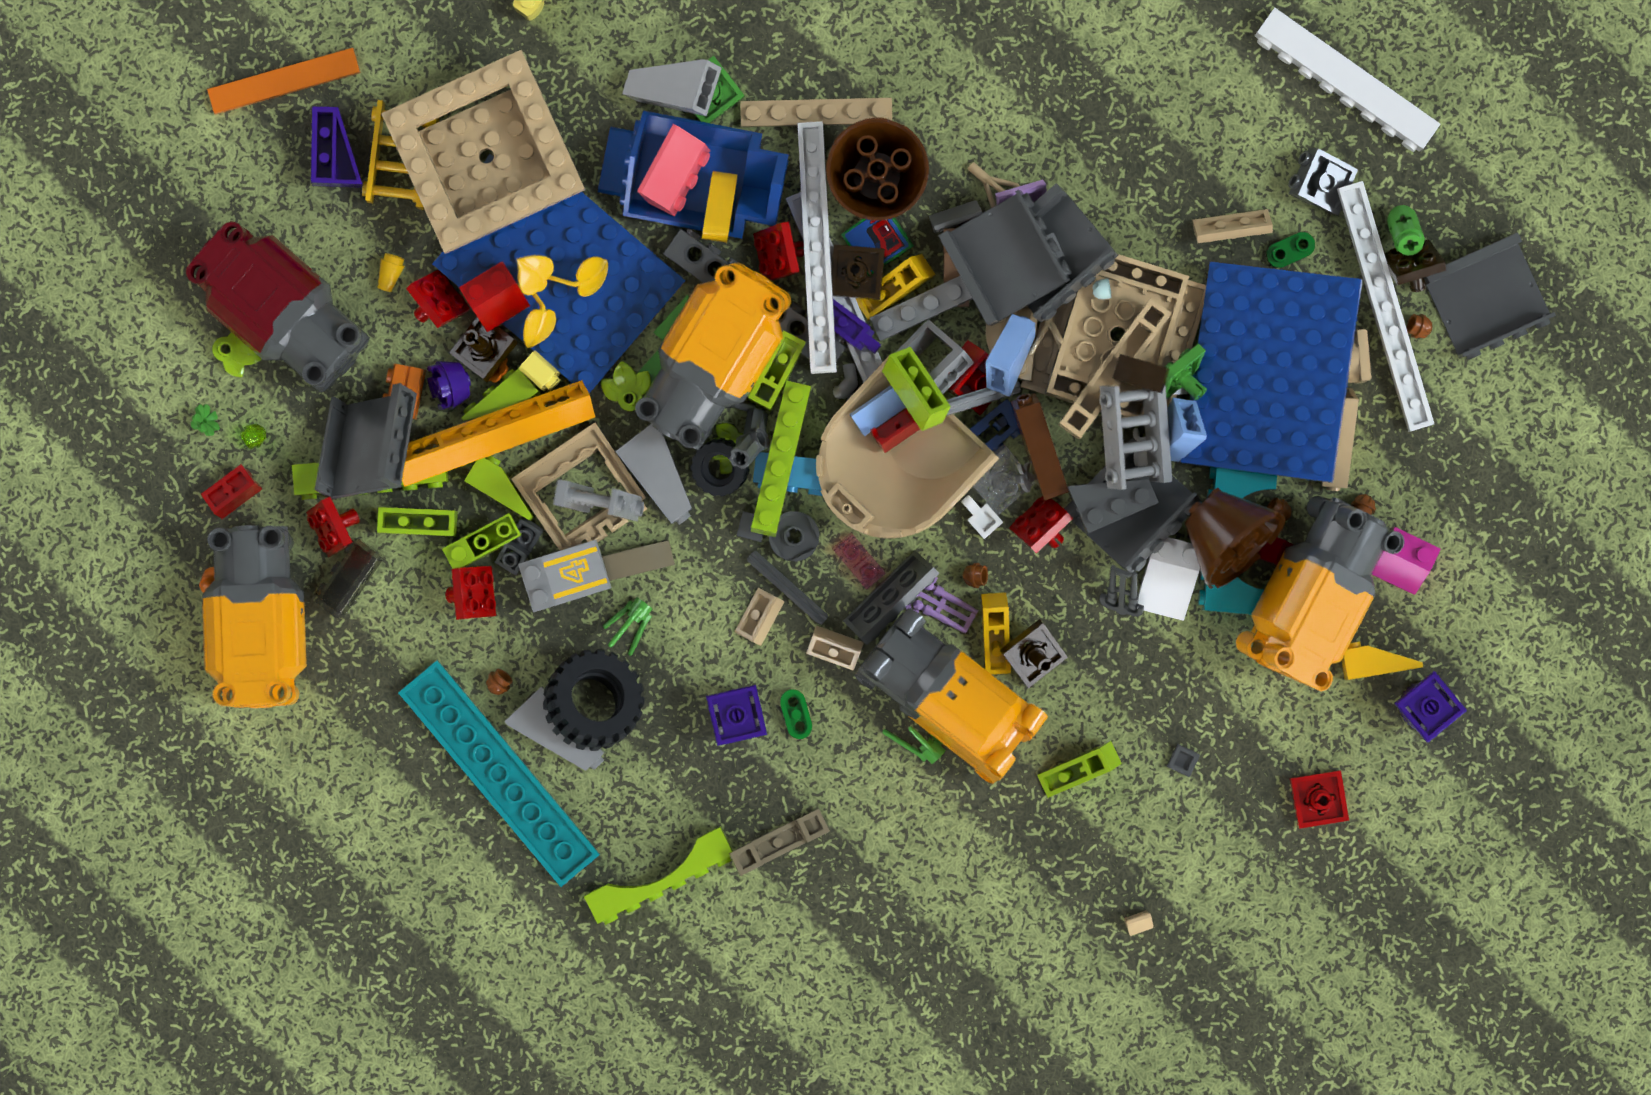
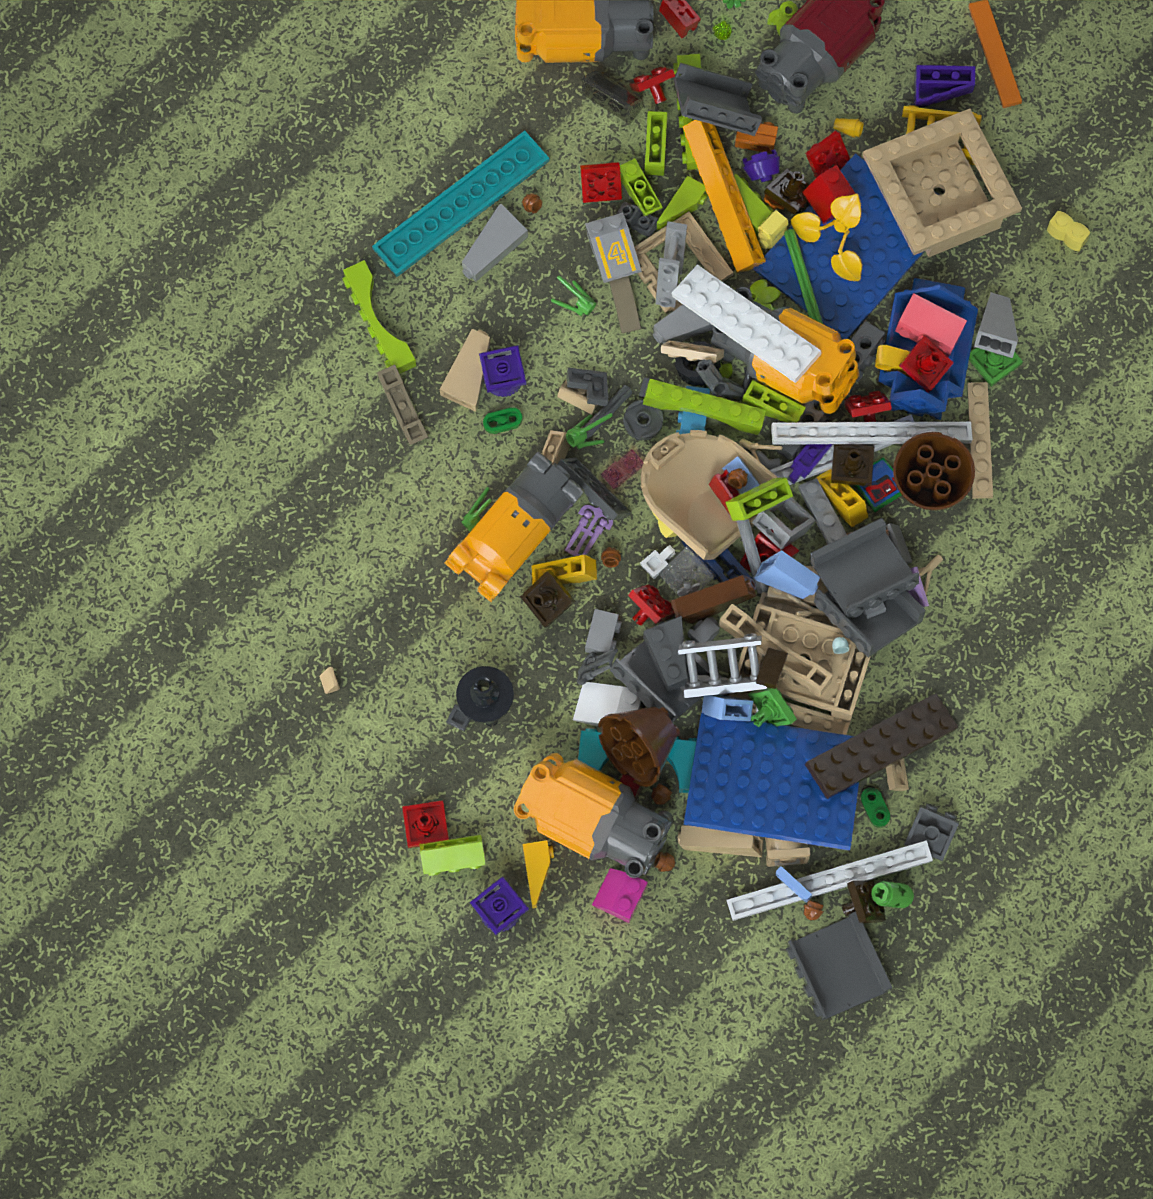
camera: 95 degrees right, 15 degrees down
(610, 330) = (802, 275): none -> bright green axle
(615, 677) = (541, 259): black tyre -> none
(689, 404) = (746, 323): none -> white plate
(710, 473) = (691, 351): none -> tan plate
(730, 170) = (930, 359): none -> red plate
(739, 762) = (466, 375): none -> tan slope
(743, 601) = (593, 381): none -> dark grey plate
(821, 619) = (577, 436): none -> bright green plant
(833, 396) = (754, 446): none -> tan plant
(882, 415) = (737, 478): none -> dark orange plate
(1073, 458) = (704, 630): none -> light grey brick
(1075, 584) = (602, 632): none -> light grey brick
(1079, 769) = (454, 636): lime slope -> none
(1146, 725) = (485, 705): none -> black piece
(1224, 240) = (881, 746): none -> dark brown plate
(1347, 80) = (1016, 852): white brick -> none
(1359, 765) = (452, 855): none -> lime brick
(1396, 349) = (793, 884): none -> light blue tile

